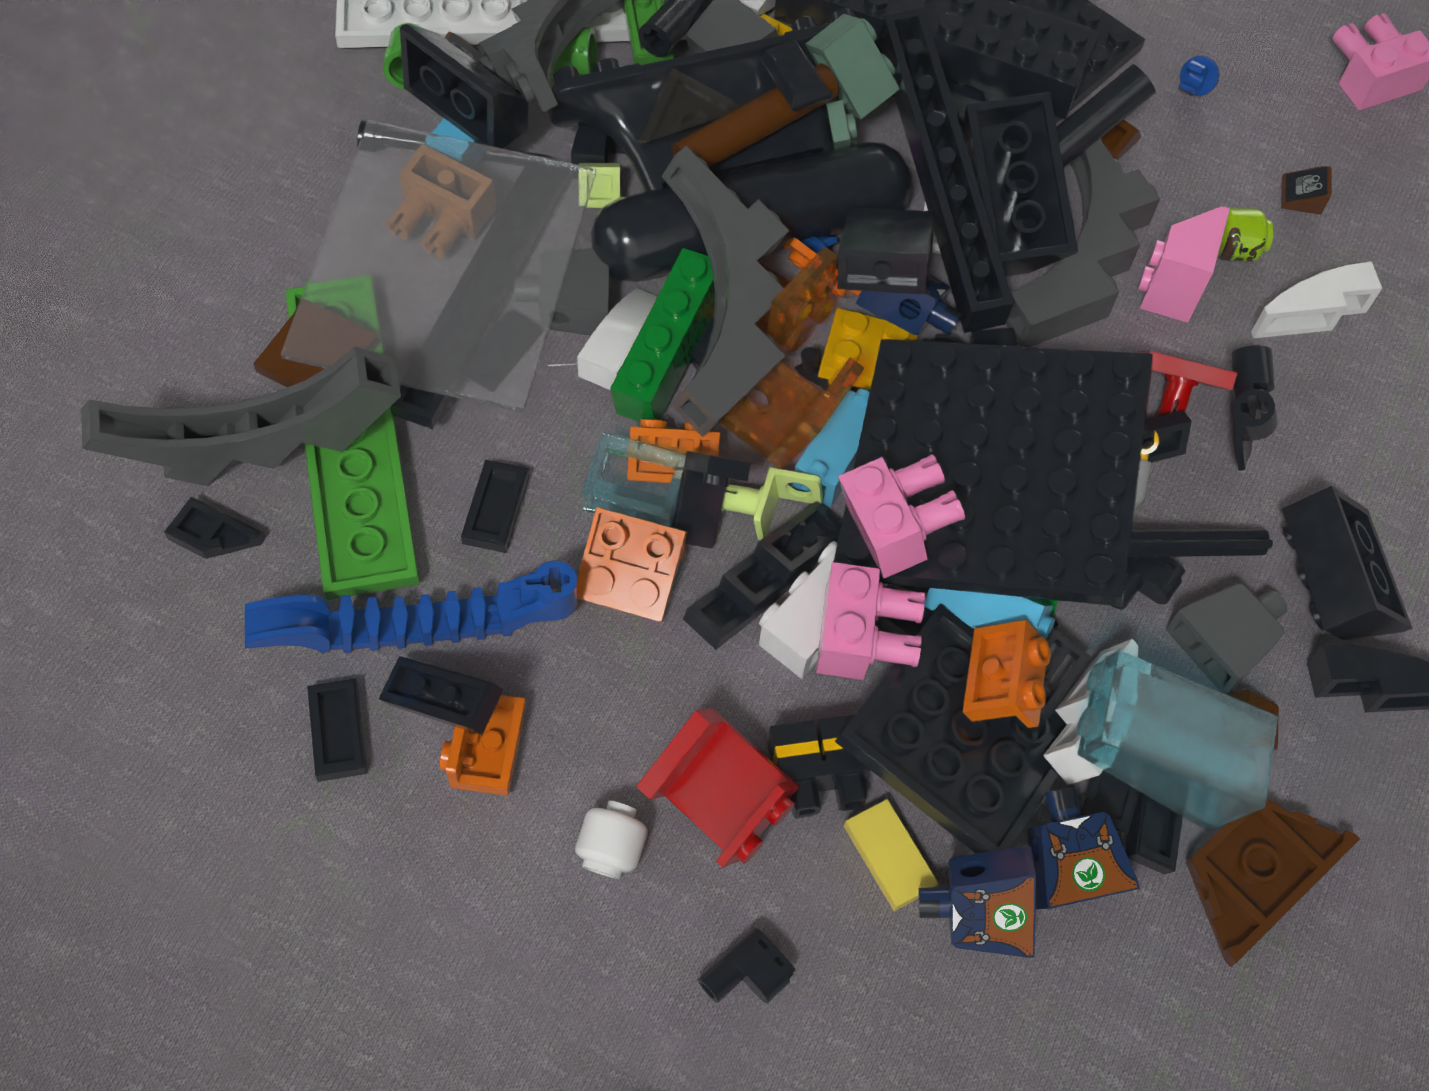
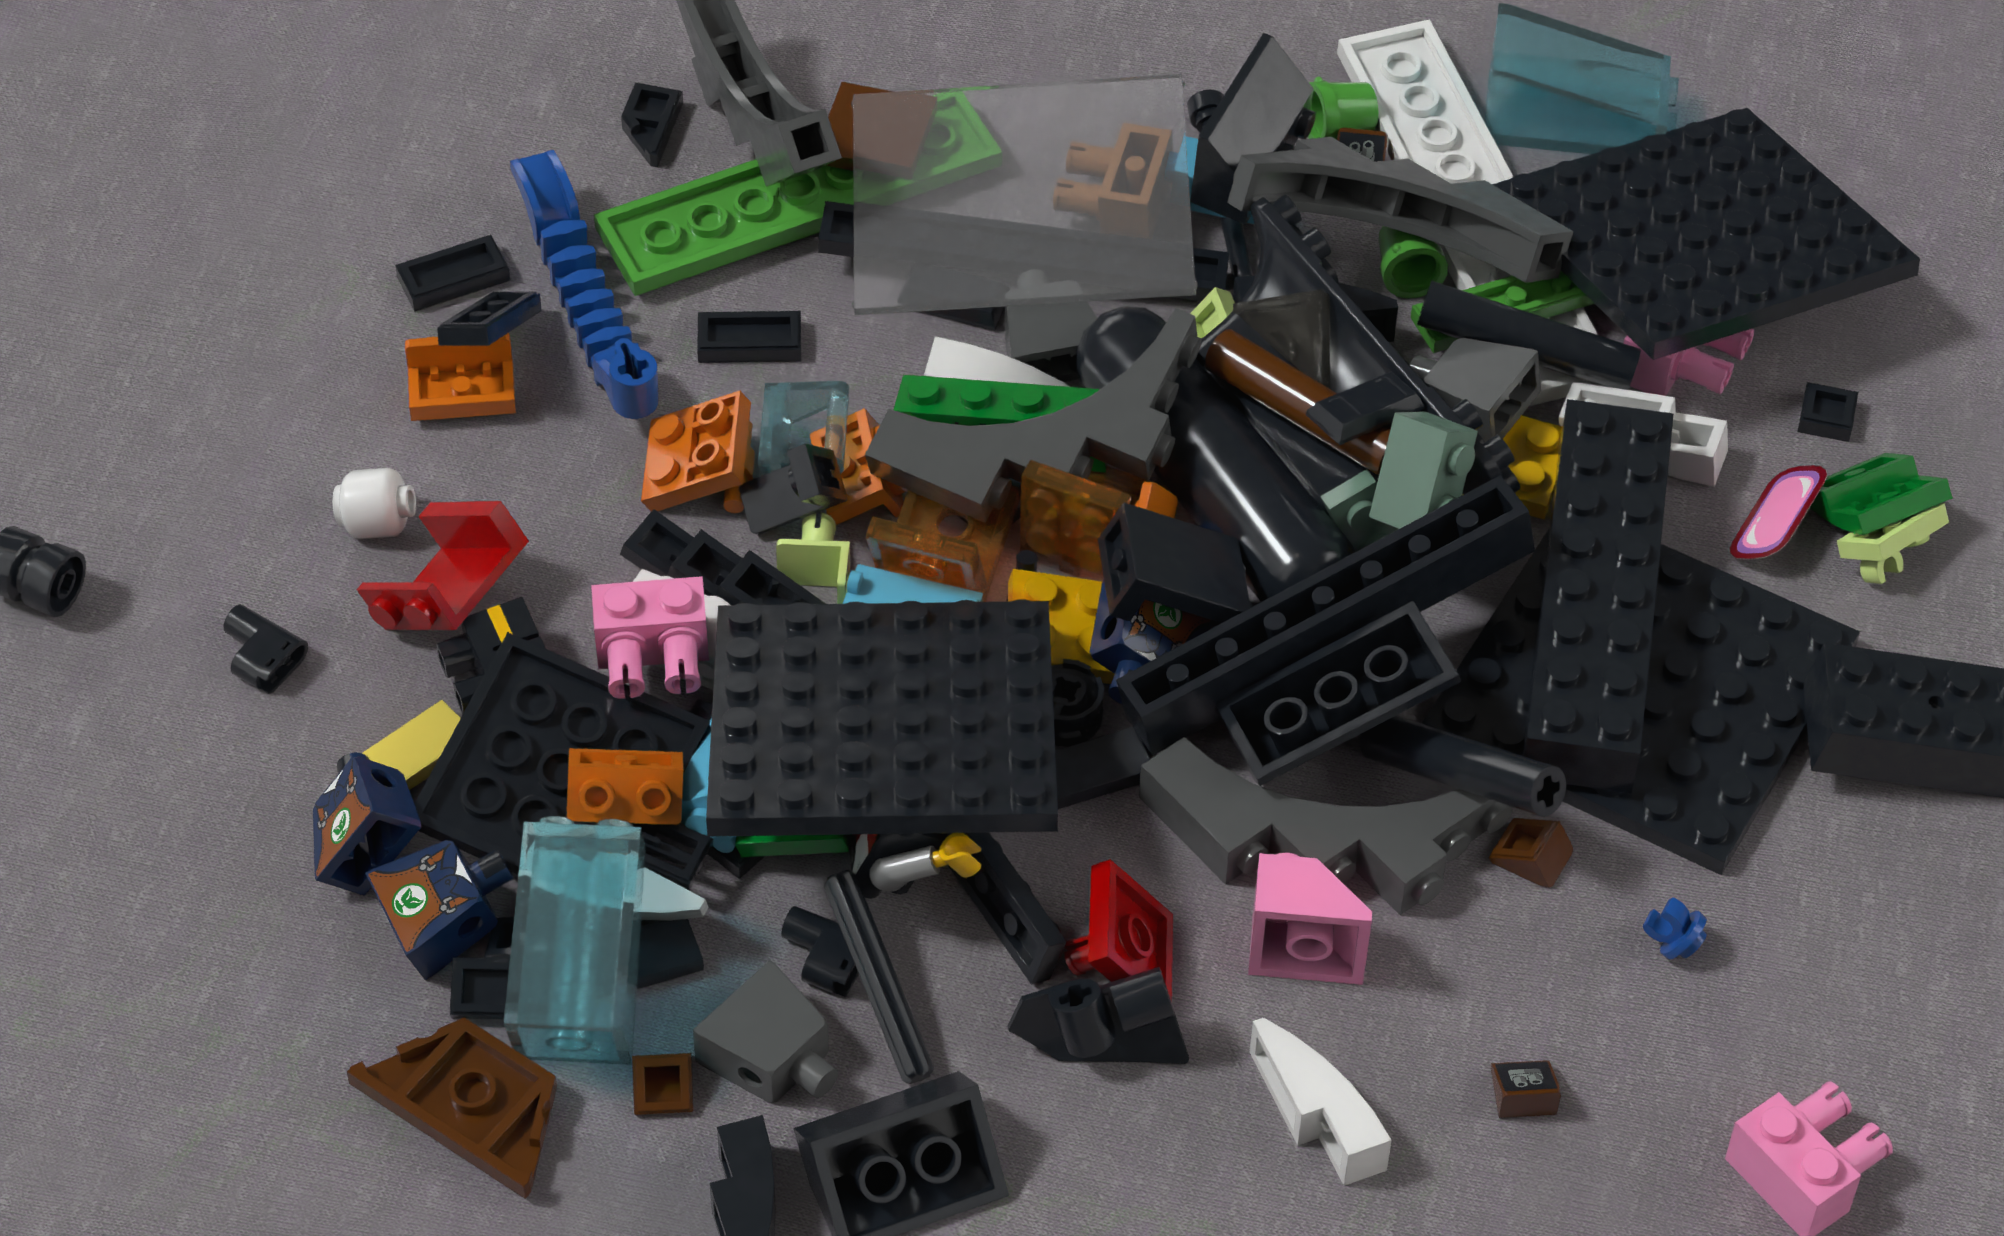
camera: 80 degrees right, 10 degrees down
(886, 522) = (769, 608): bright pink brick -> none
(1245, 235) = (1403, 1005): lime head -> none

